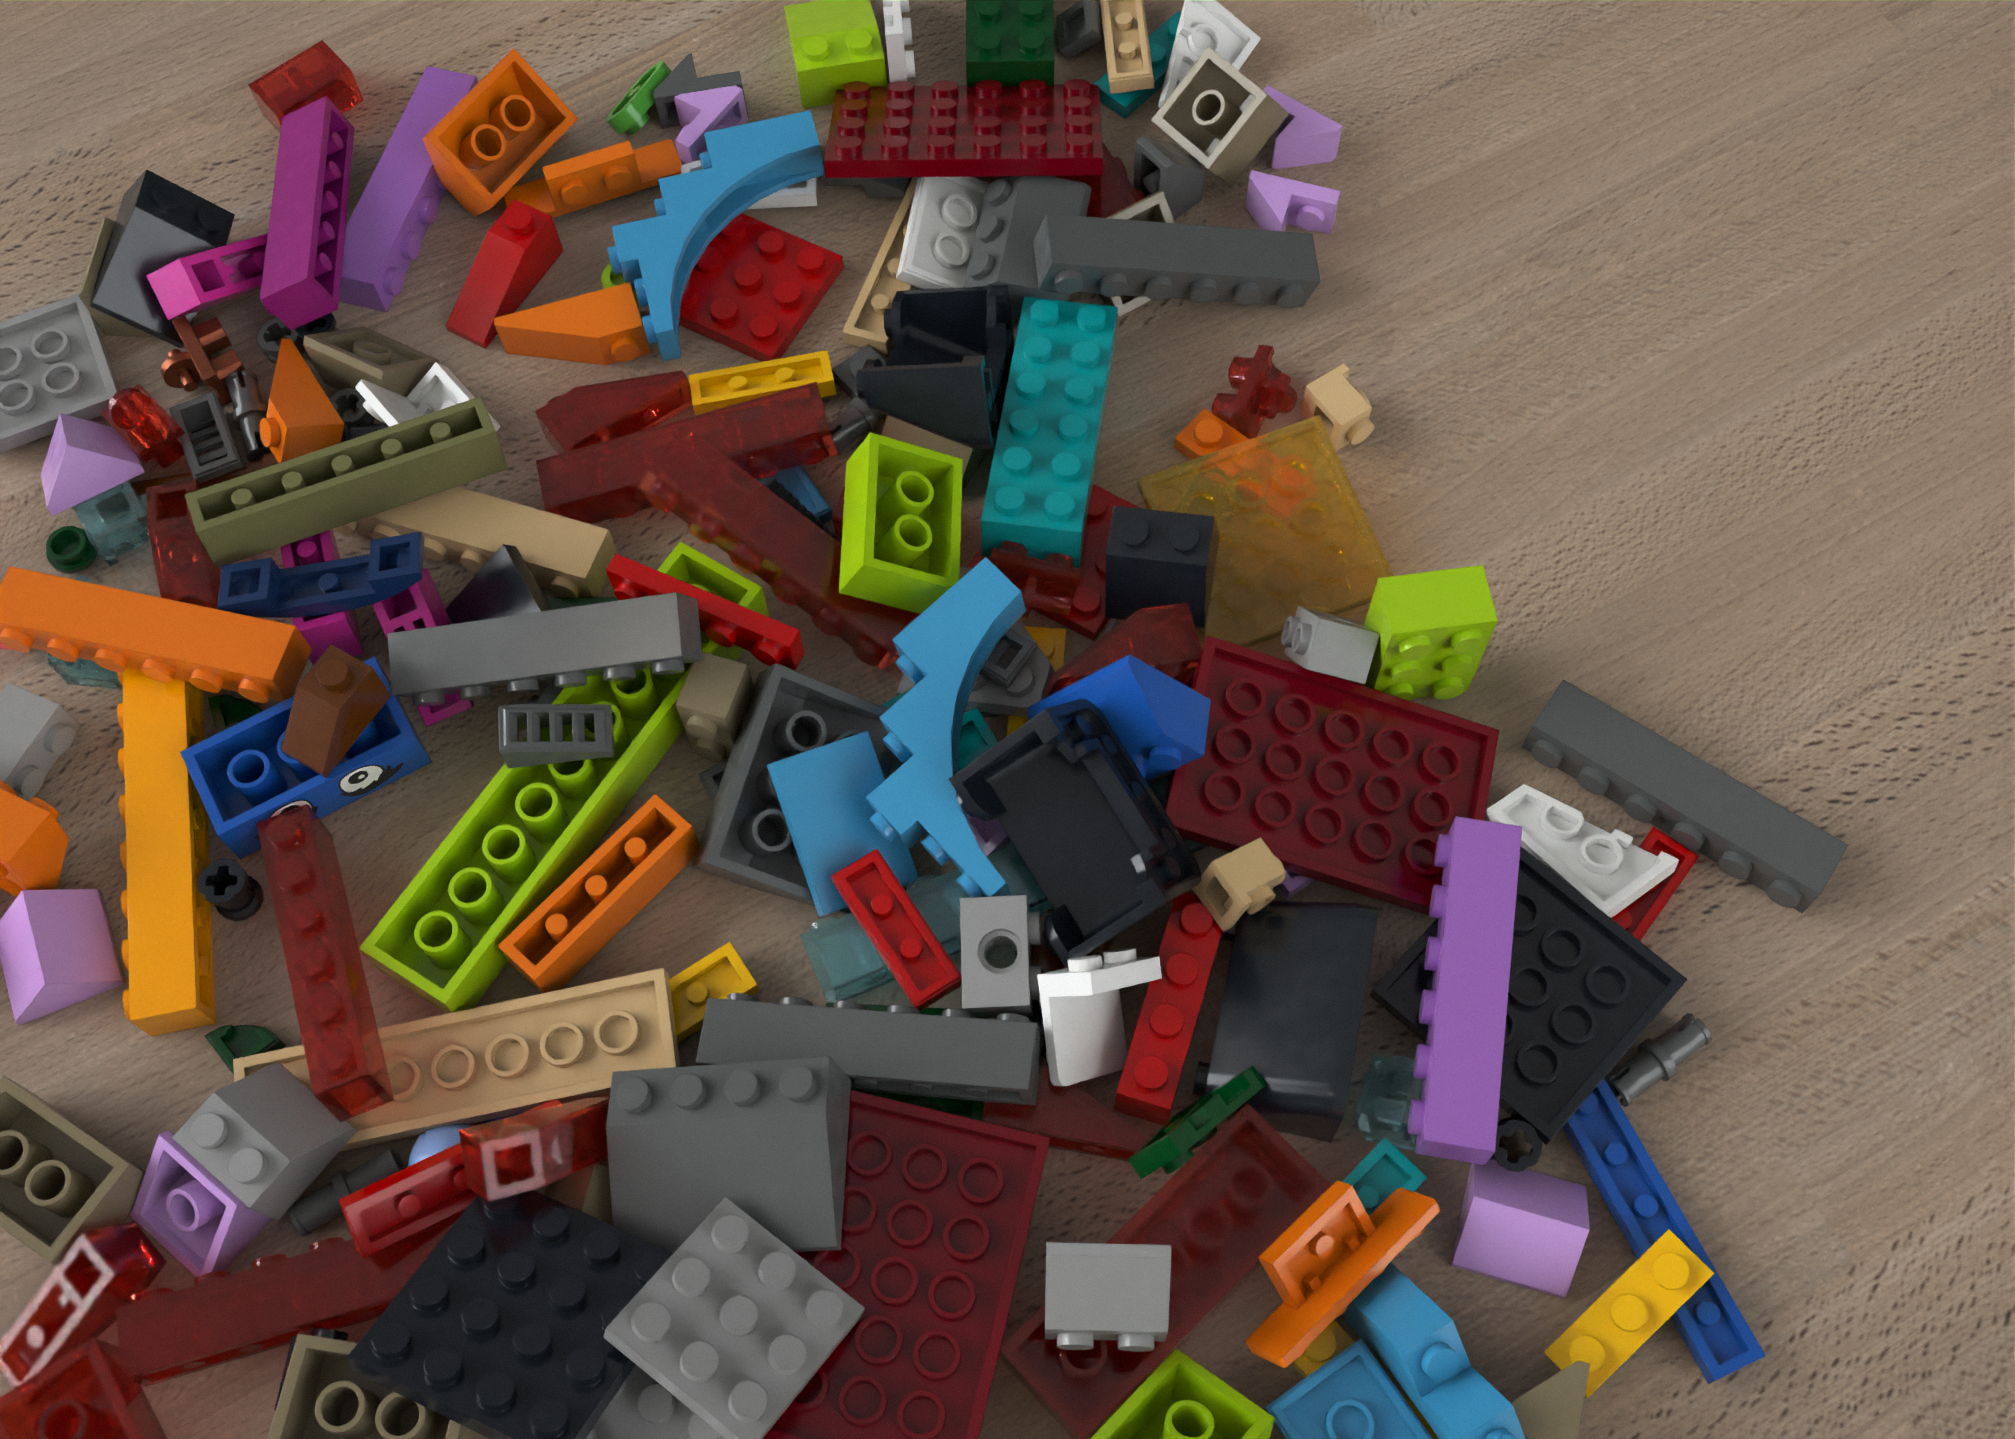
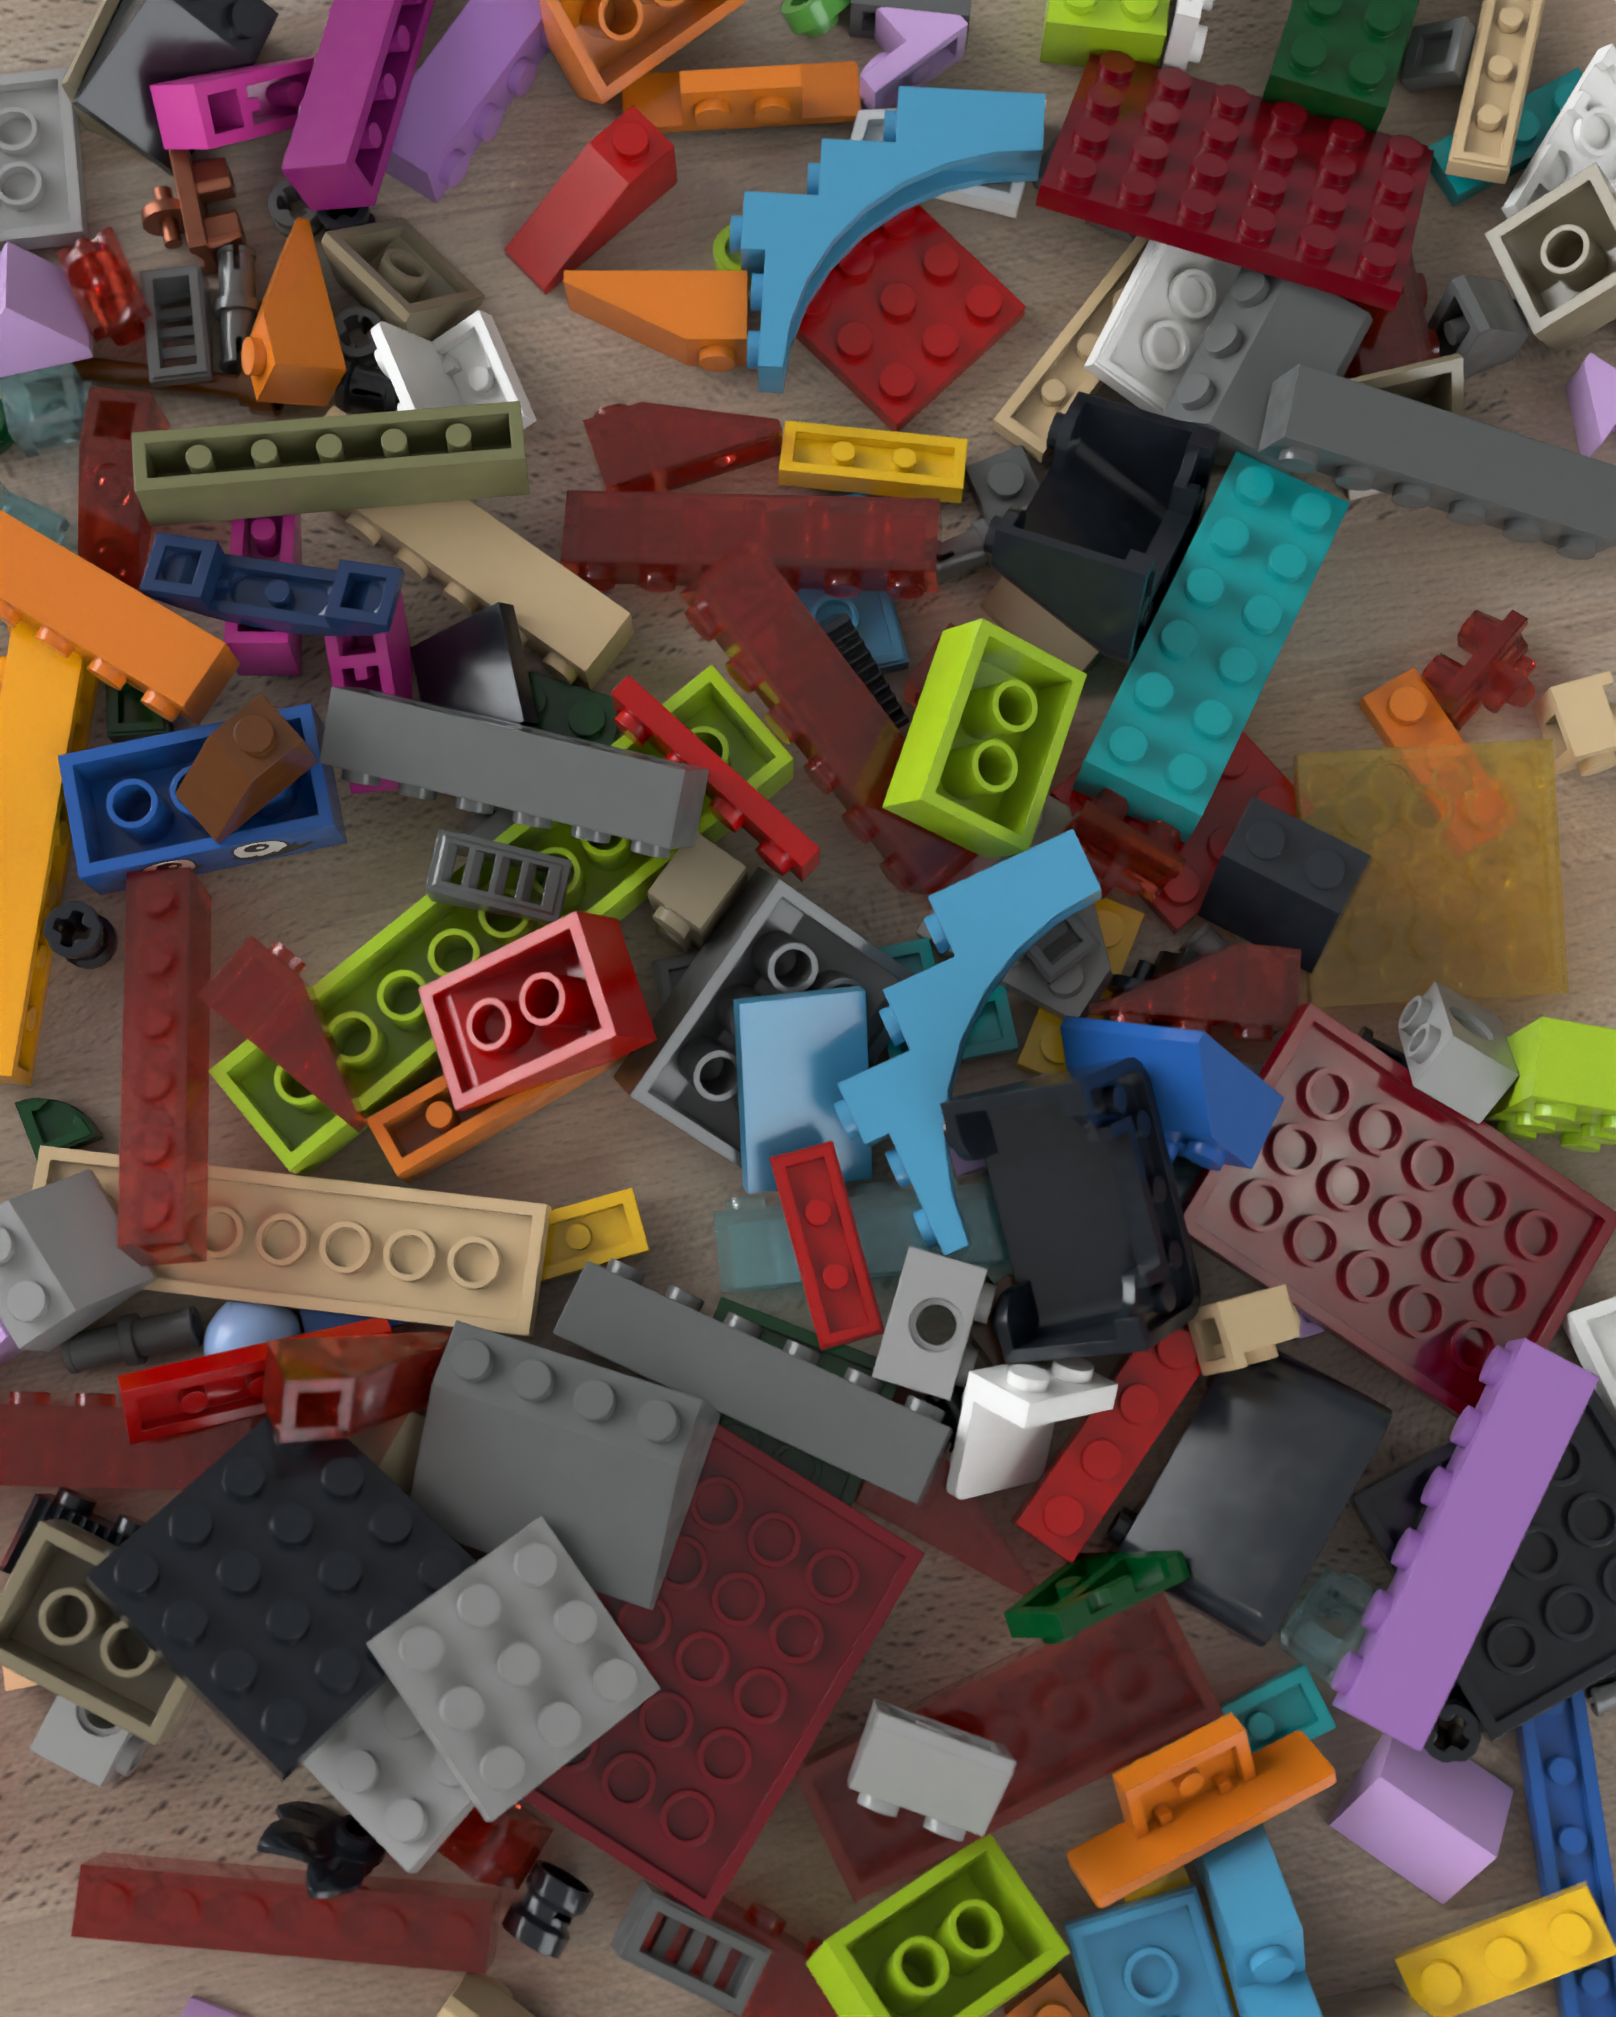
camera: 15 degrees right, 15 degrees up
(399, 879) = (281, 1015): none -> clear red slope
(613, 816) = (537, 1010): none -> red slope

